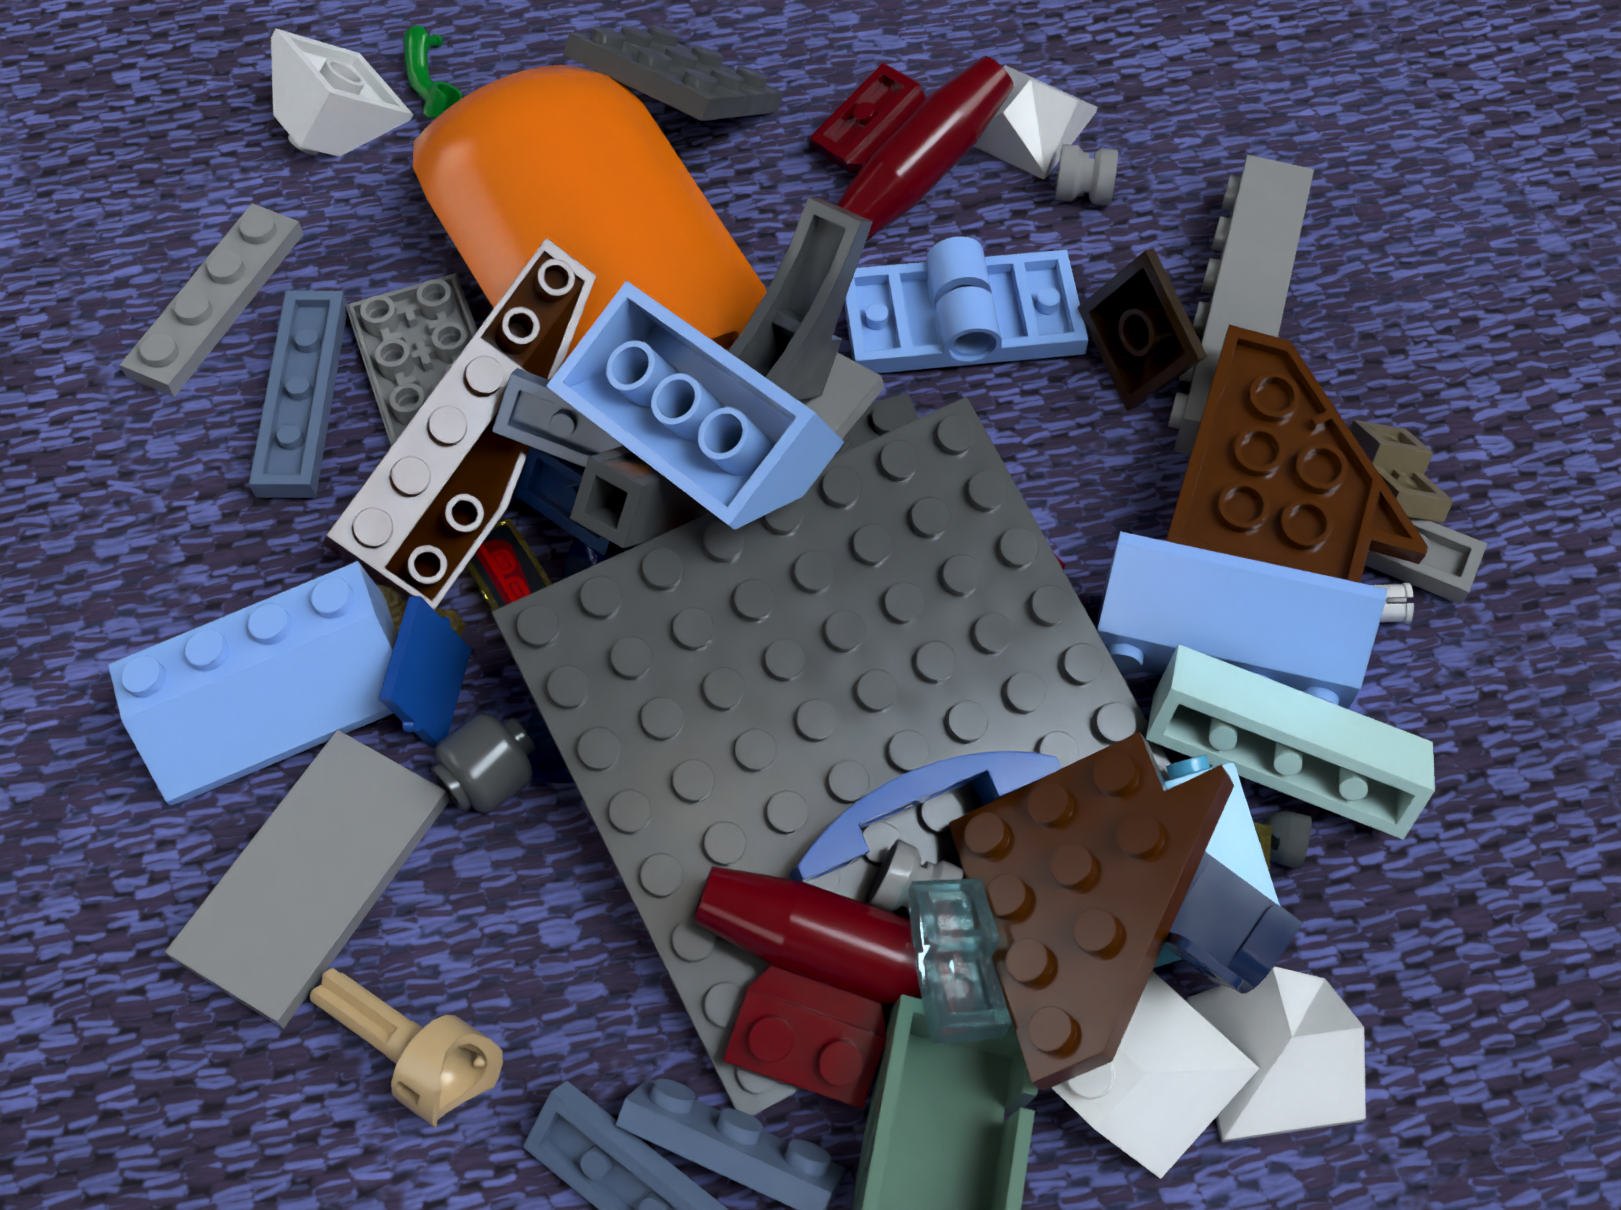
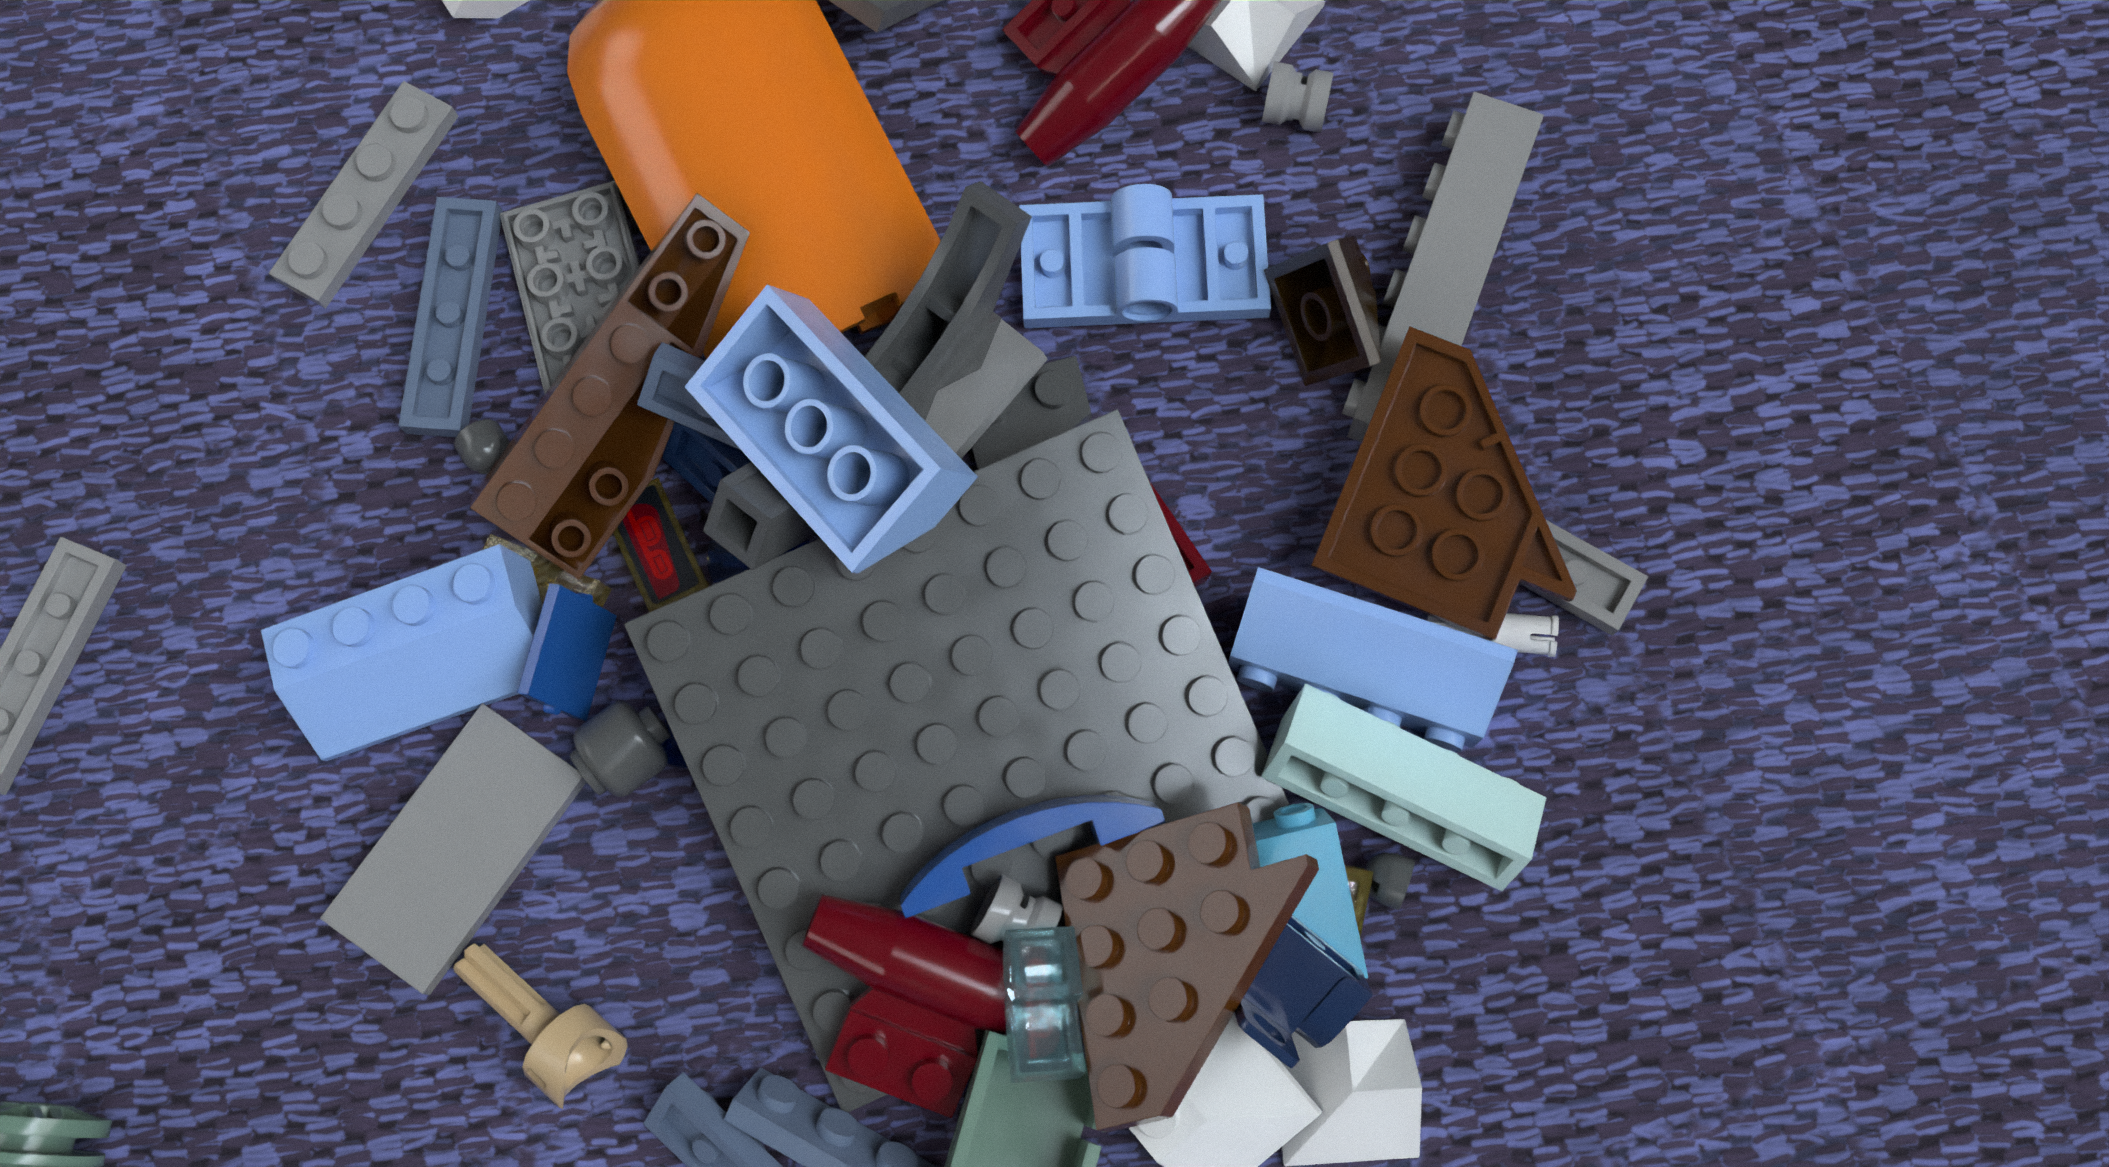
camera: 10 degrees right, 15 degrees up
(329, 496) = (481, 445): none -> dark grey hinge
(1402, 465) = (1569, 482): dark tan slope -> none

